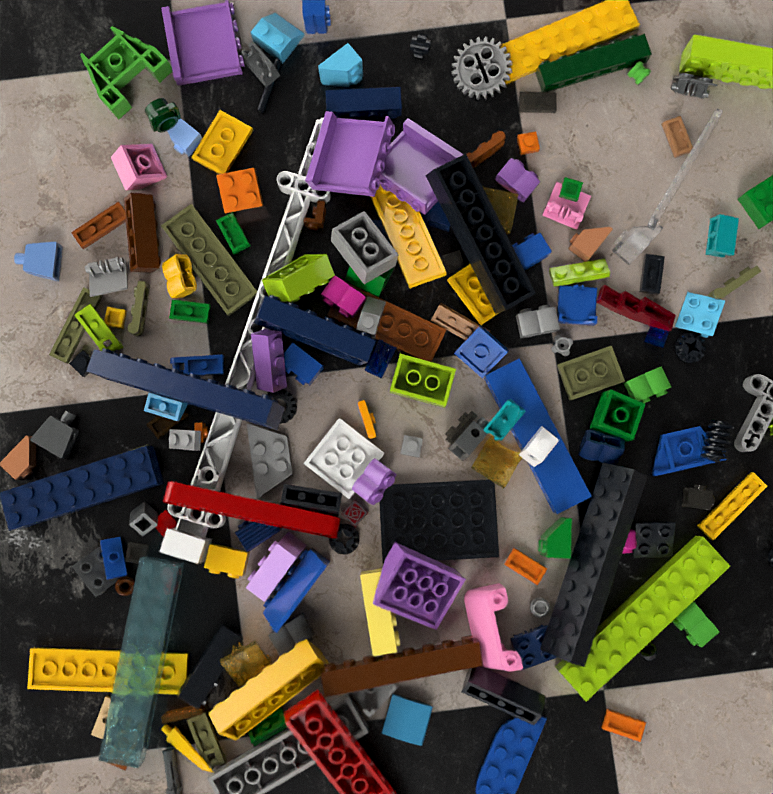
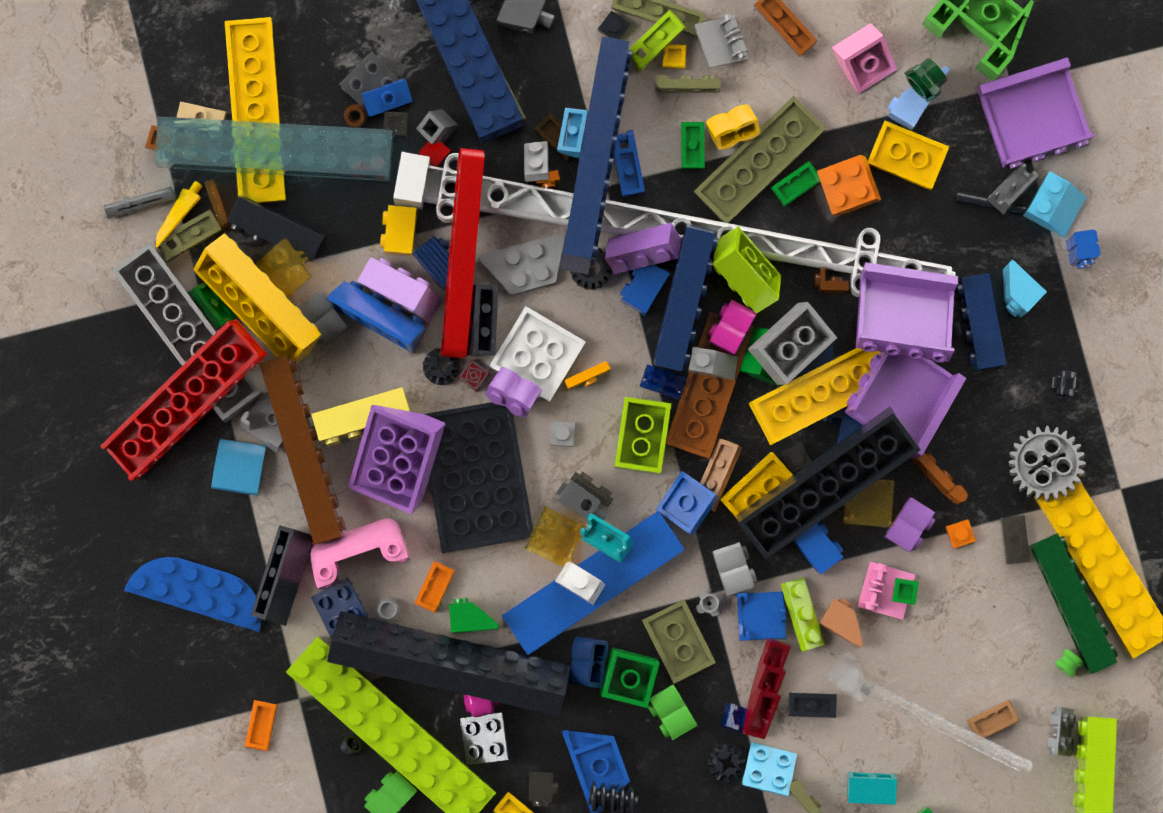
camera: 80 degrees right, 0 degrees up
(142, 233) = (781, 74): reddish brown brick -> none

